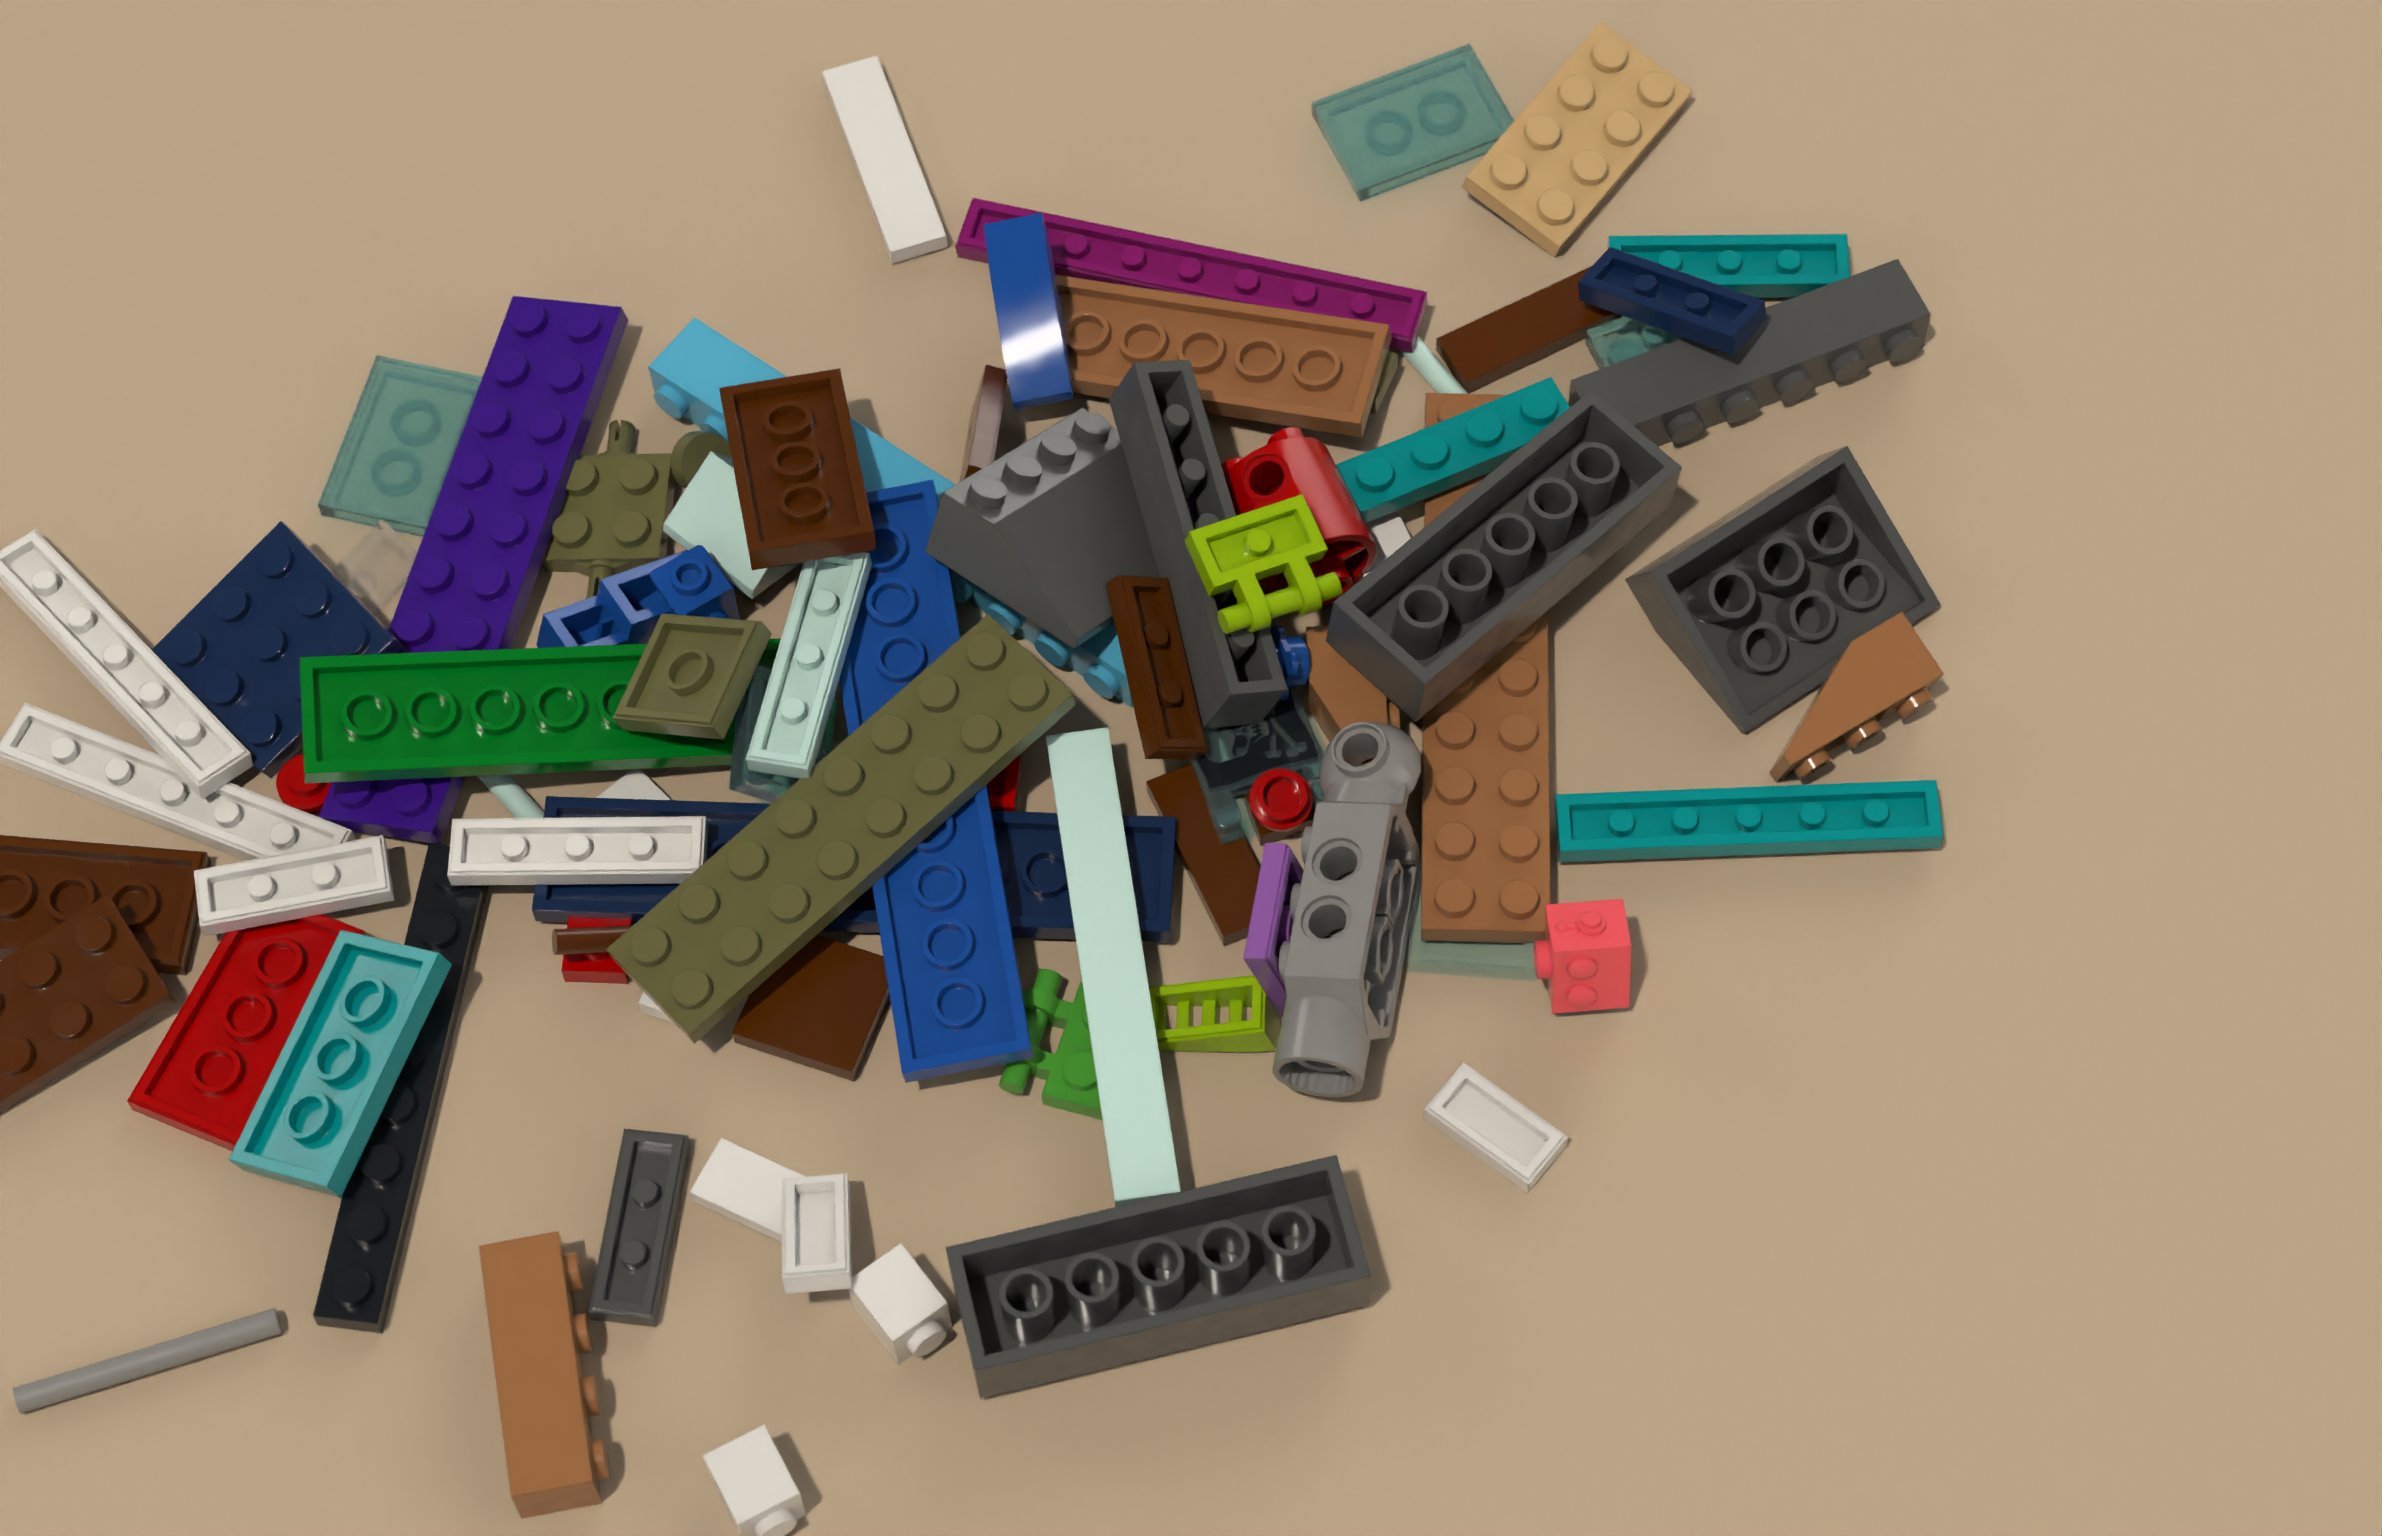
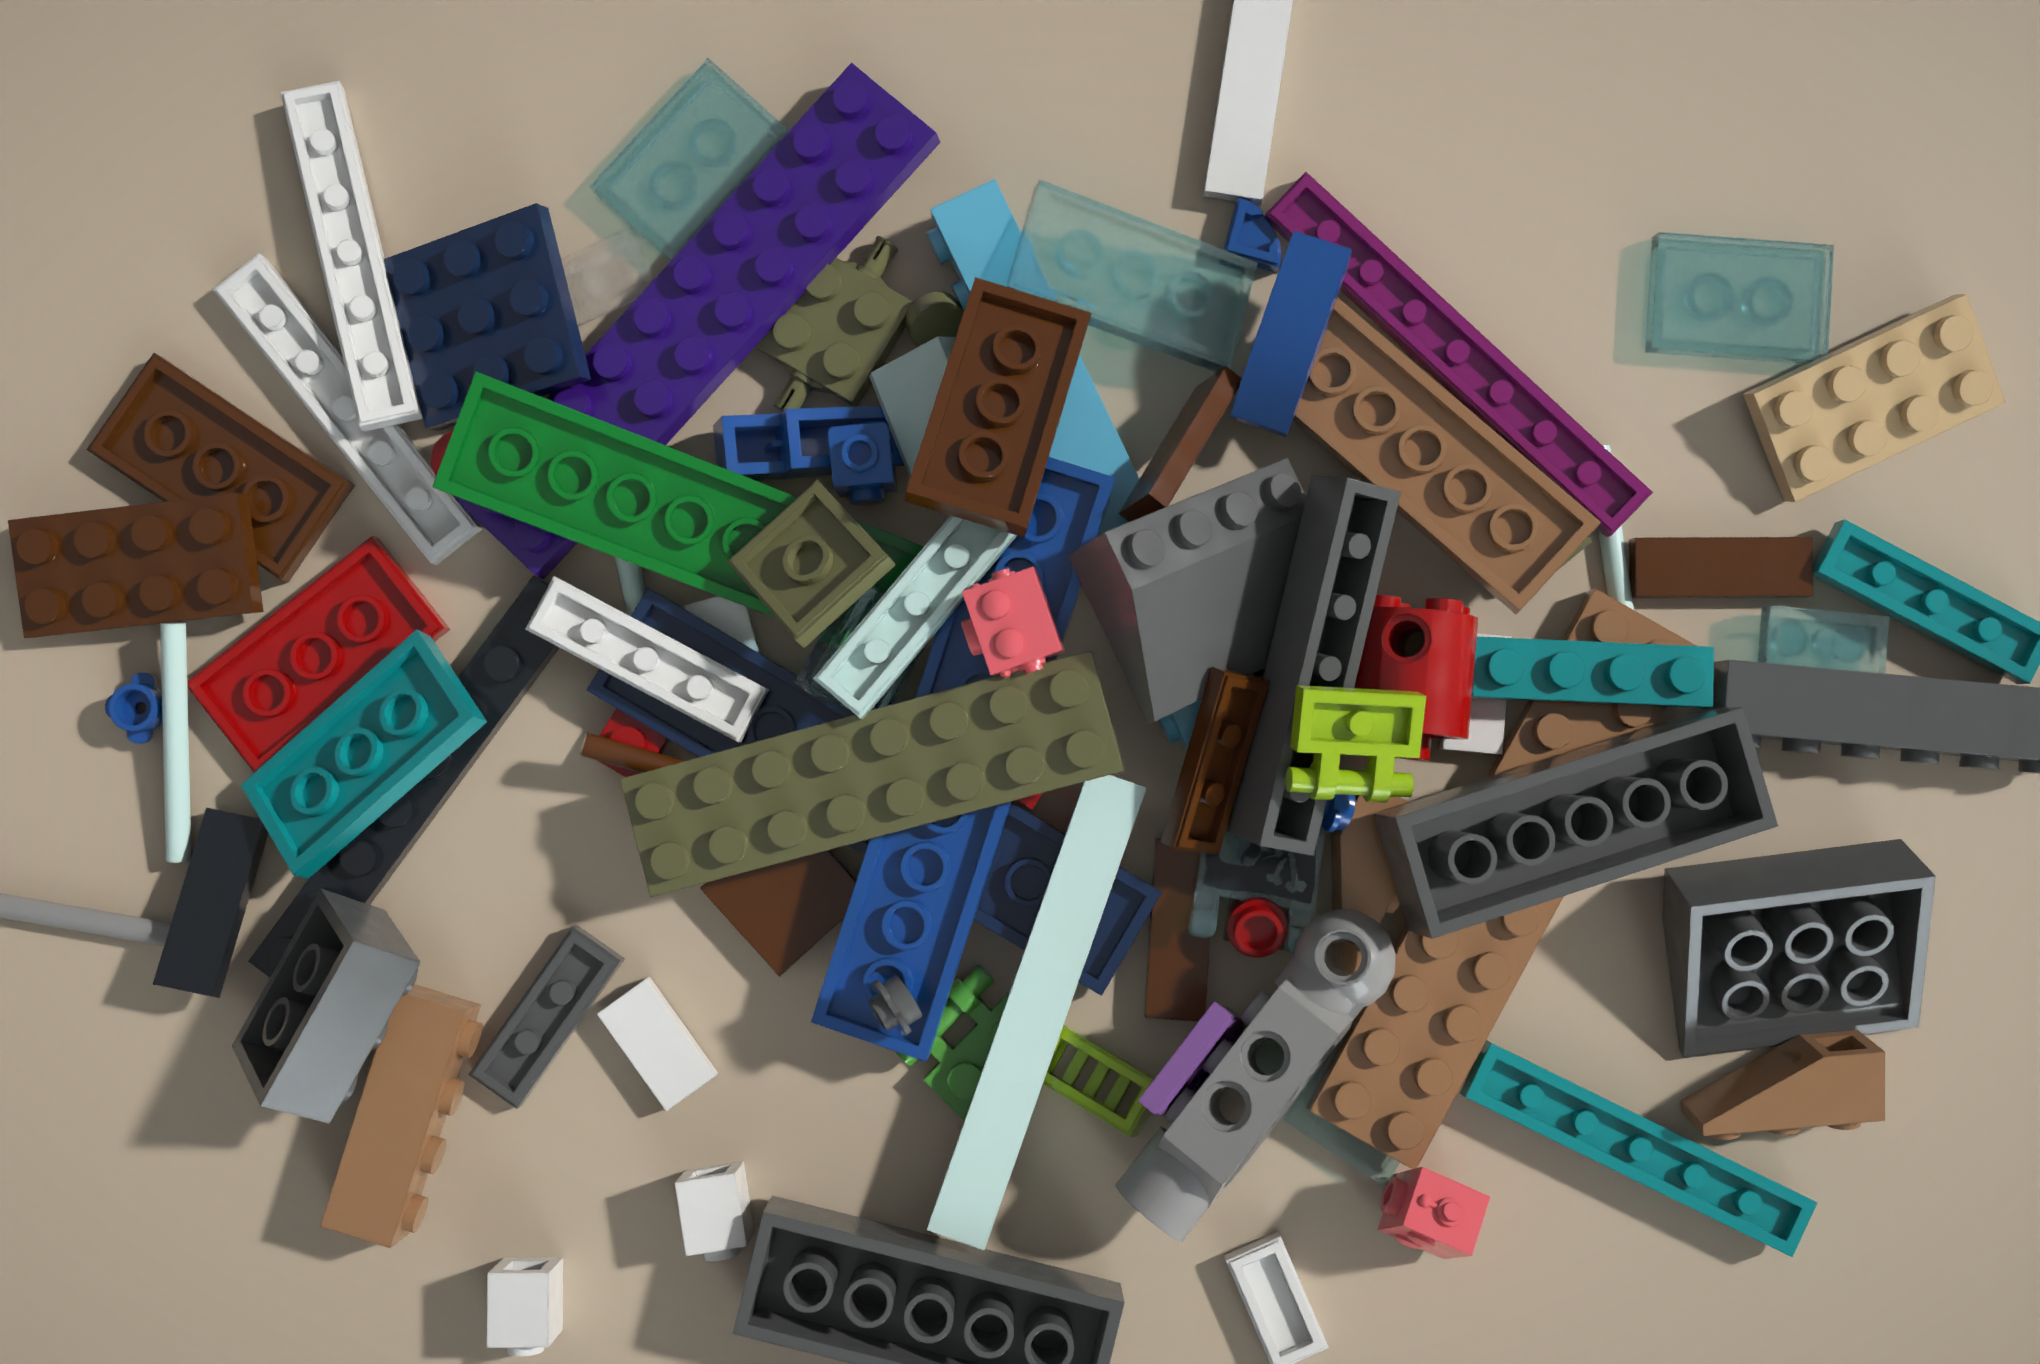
camera: 20 degrees right, 25 degrees up
(82, 1131) = (123, 707): none -> blue plate
(145, 1155) = (175, 742): none -> light aqua bar
(252, 1277) = (212, 903): none -> black tile
(293, 885) = (401, 559): white tile -> none
(417, 1282) = (325, 1007): none -> dark grey brick
(816, 1233) = (672, 1124): white tile -> none
(871, 335) = (1133, 276): none -> clear light blue tile
(903, 624) = (1011, 623): none -> coral head
(955, 274) = (1253, 236): none -> blue tile
(971, 999) = (893, 1005): none -> dark grey plate
(1672, 300) = (1865, 633): dark blue plate -> none

